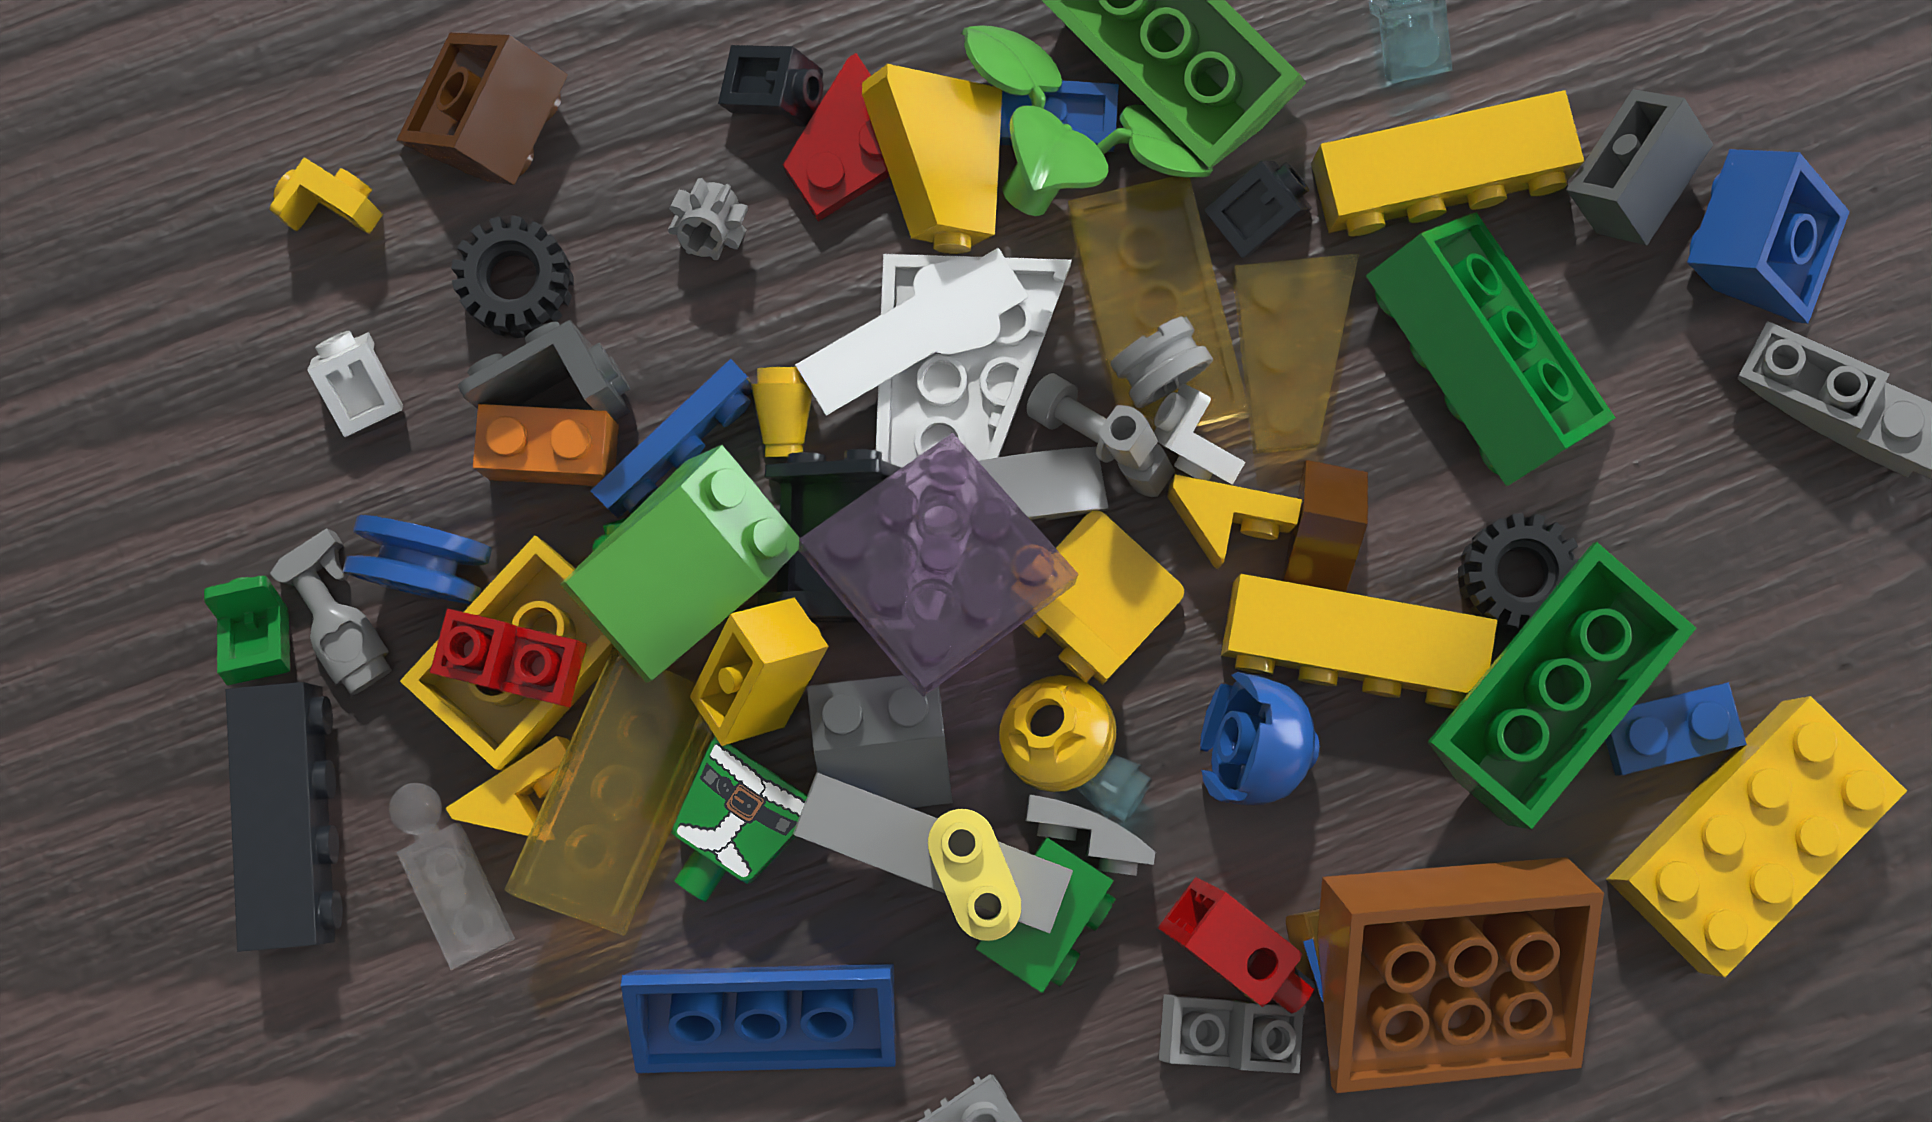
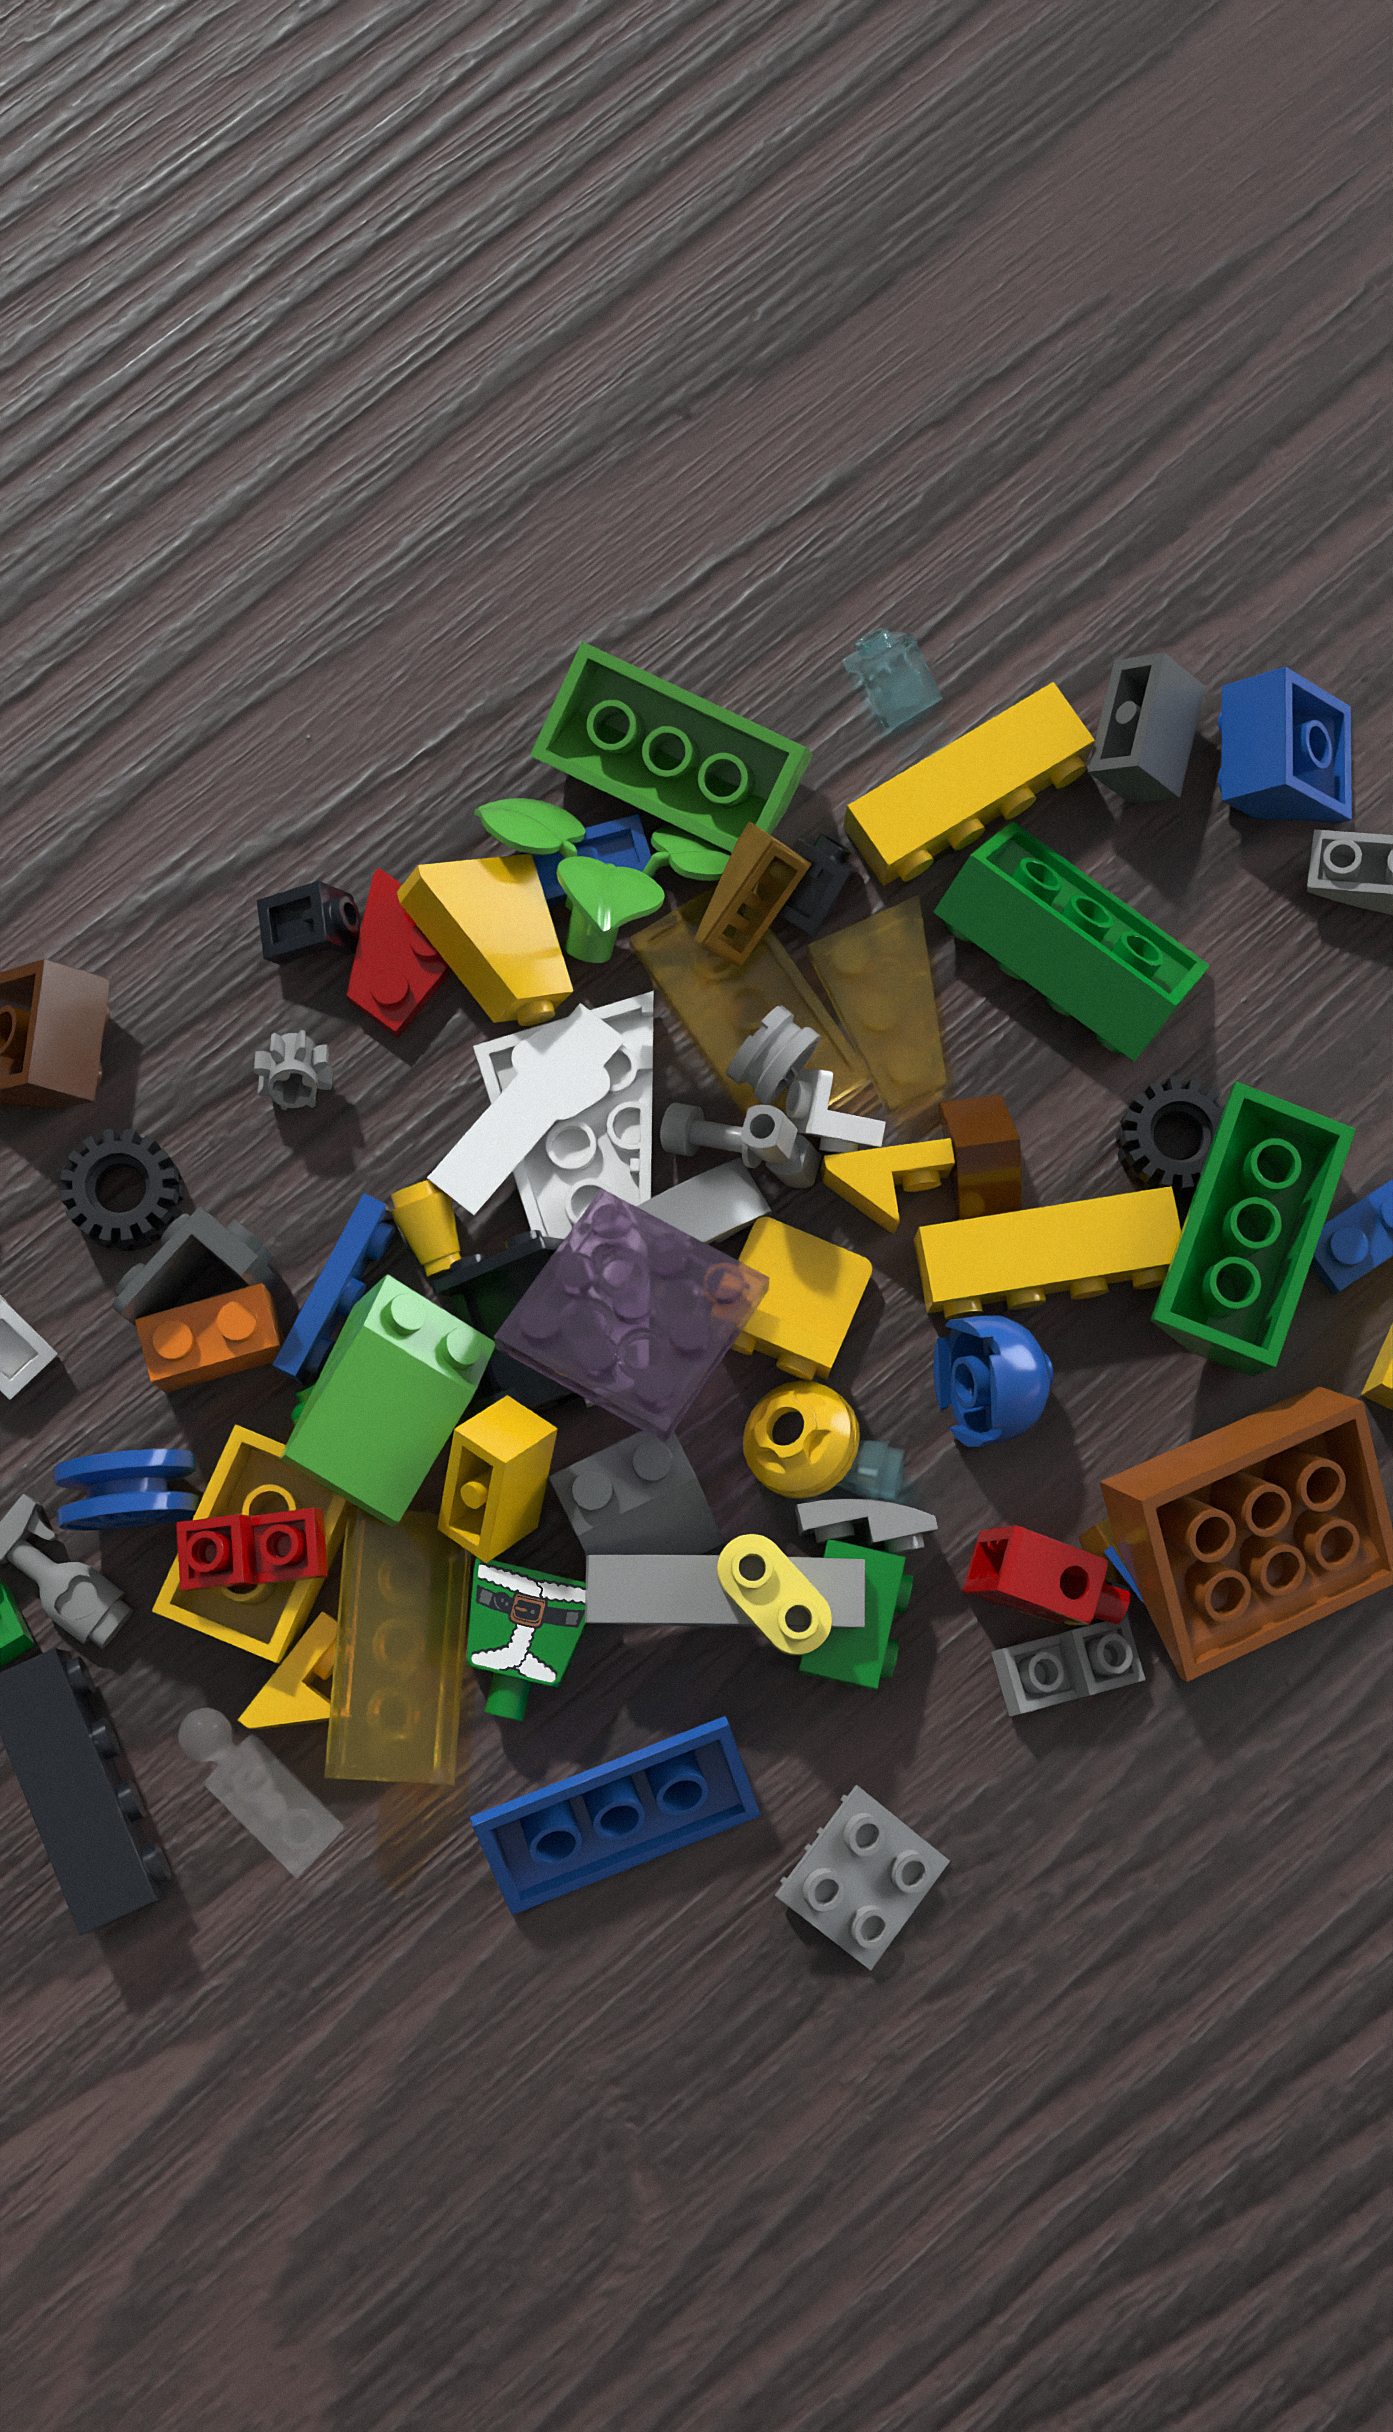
camera: 25 degrees left, 5 degrees down
(1229, 186) = (753, 859): none -> pearl gold slope

